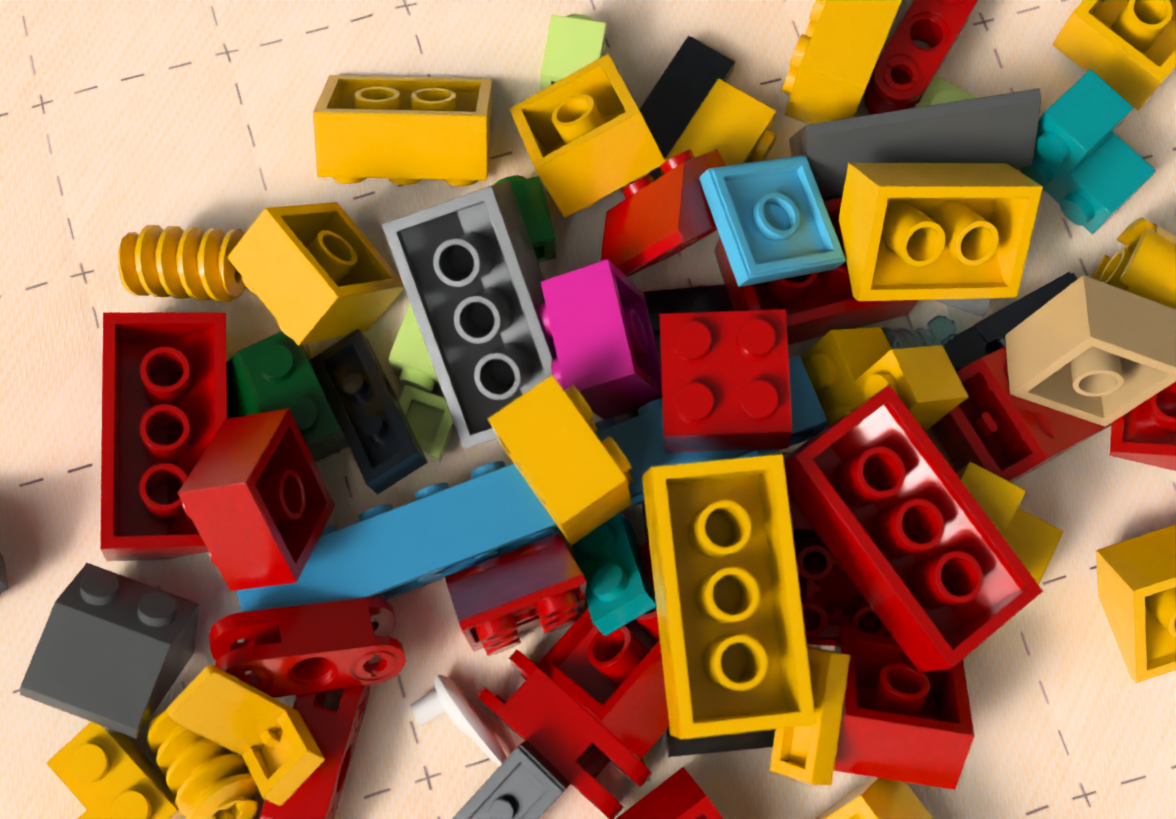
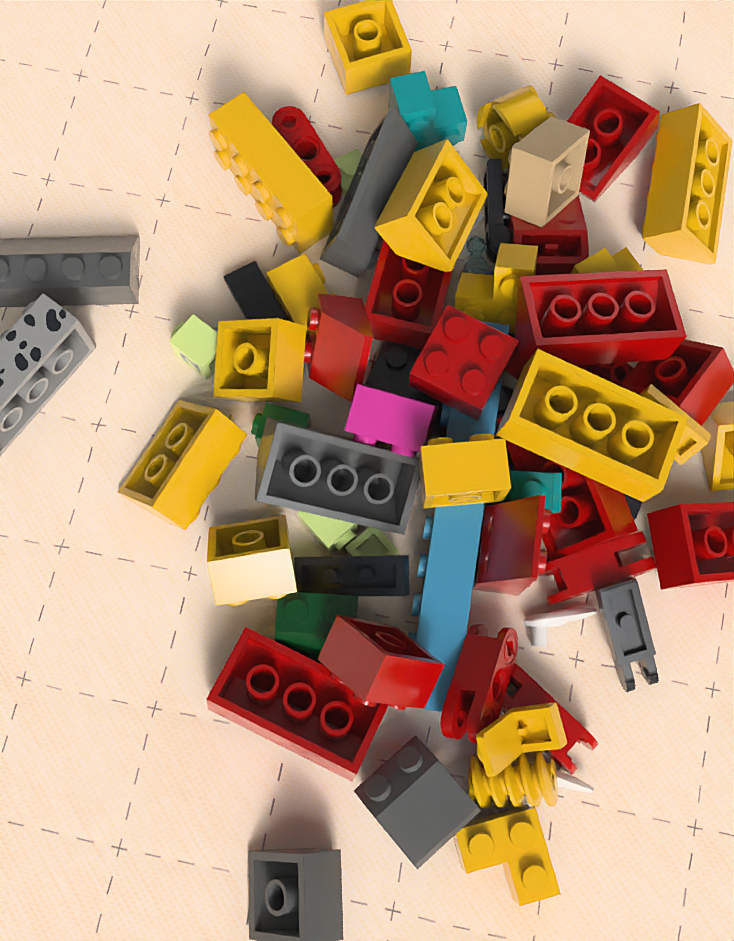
camera: 60 degrees left, 0 degrees up
(180, 263) = (196, 638): yellow piece -> none
(771, 220) = (379, 287): medium azure tile -> none

